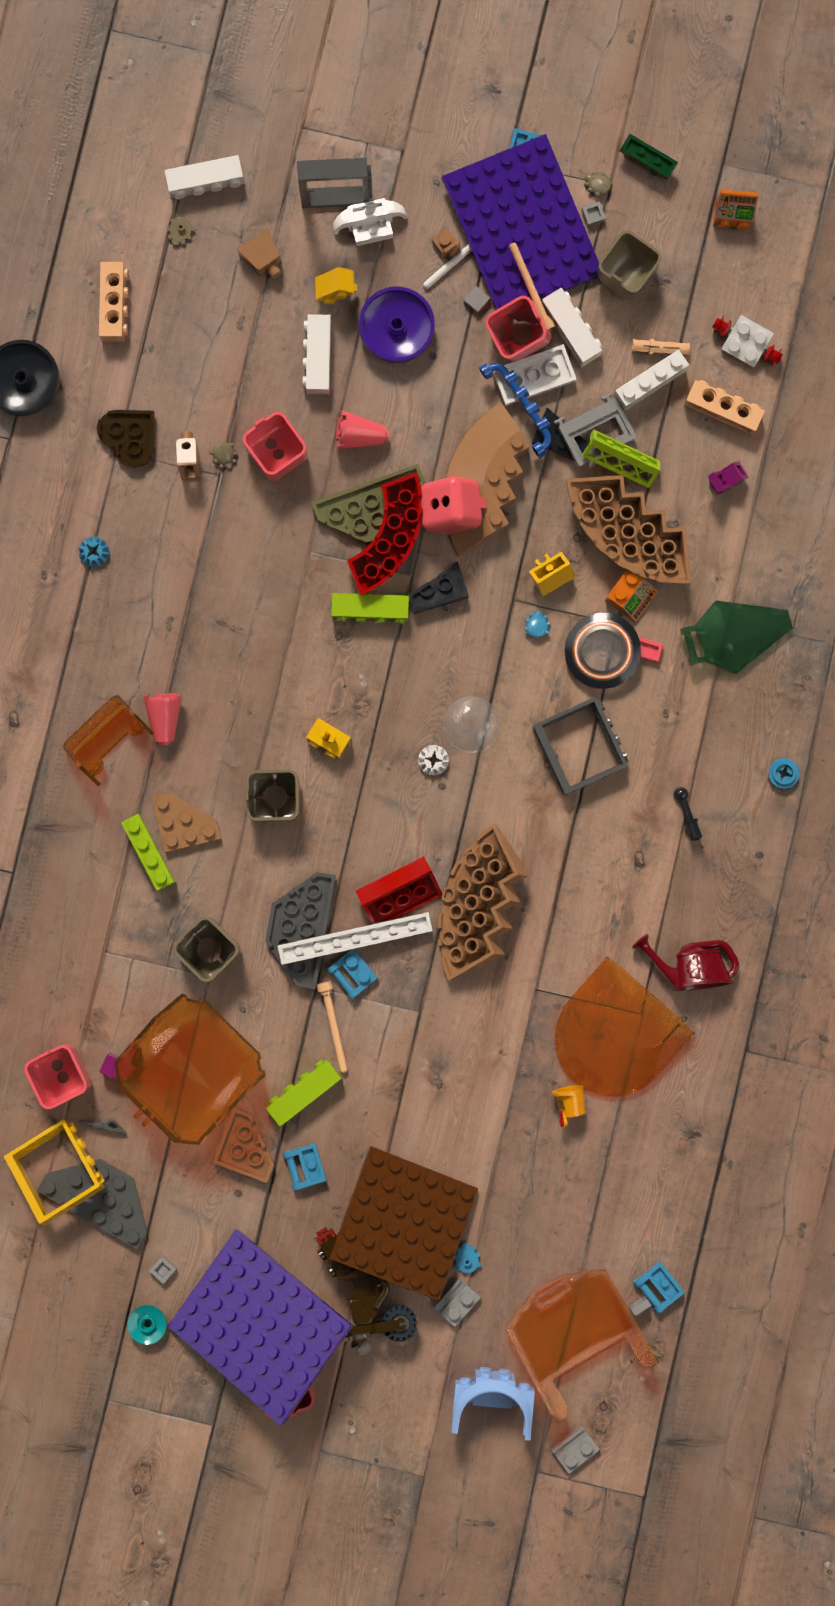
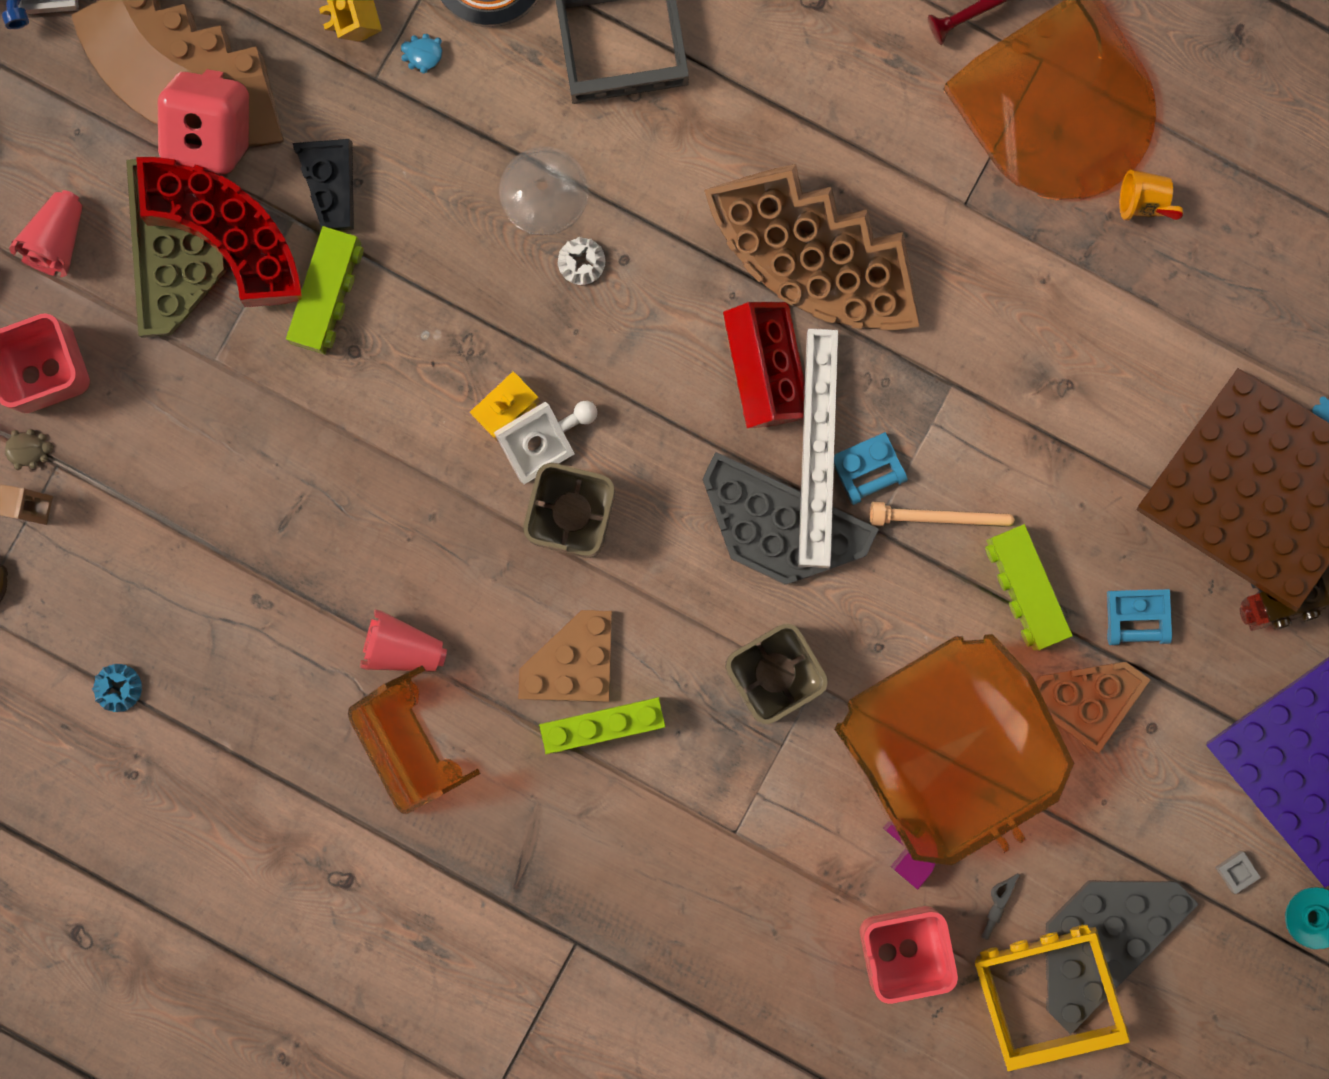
camera: 70 degrees left, 0 degrees up
(322, 765) = (541, 423): none -> white plate

